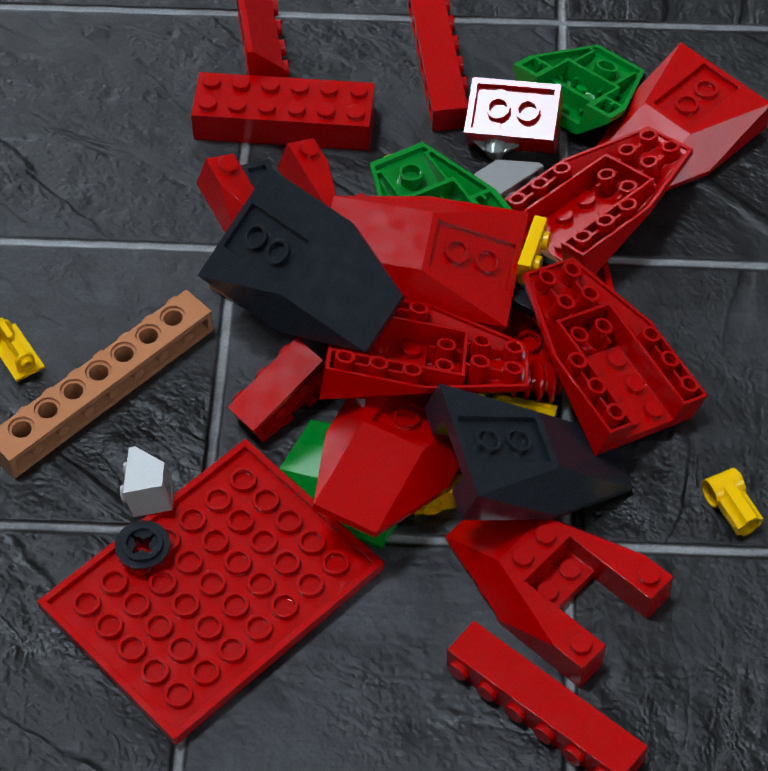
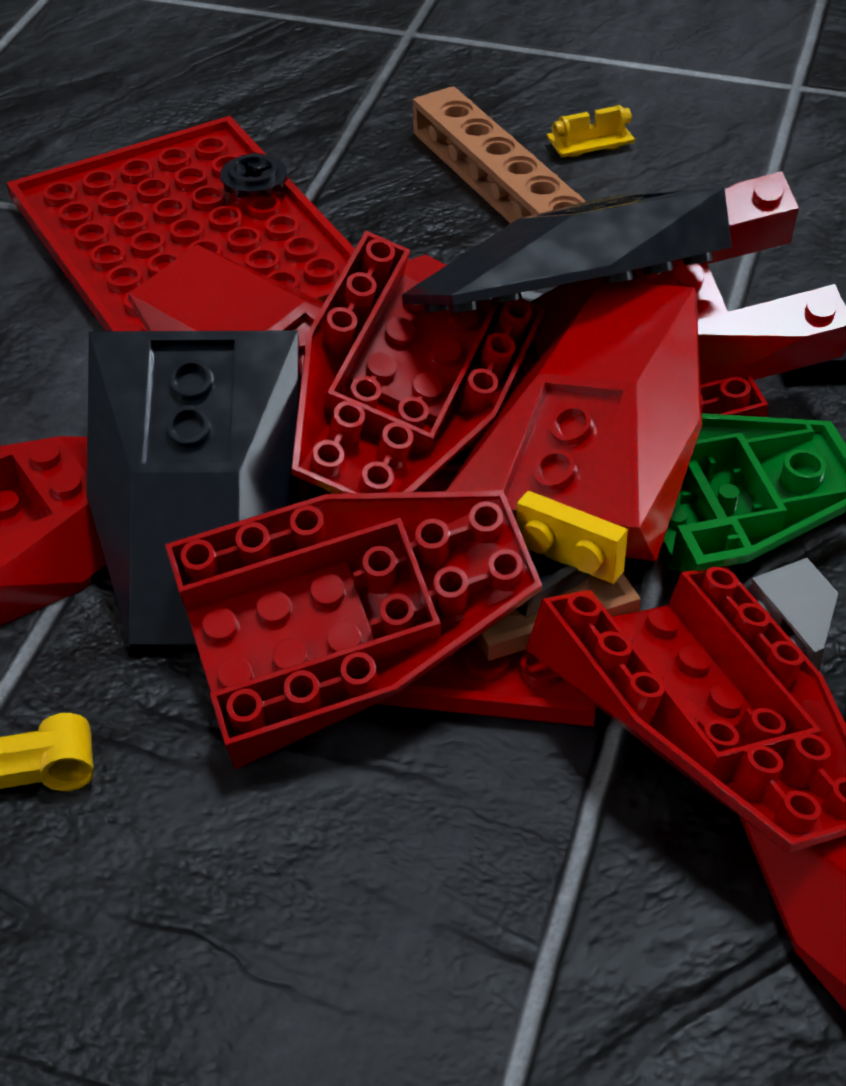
camera: 105 degrees right, 10 degrees down
(146, 484) = (344, 188): light grey slope -> none

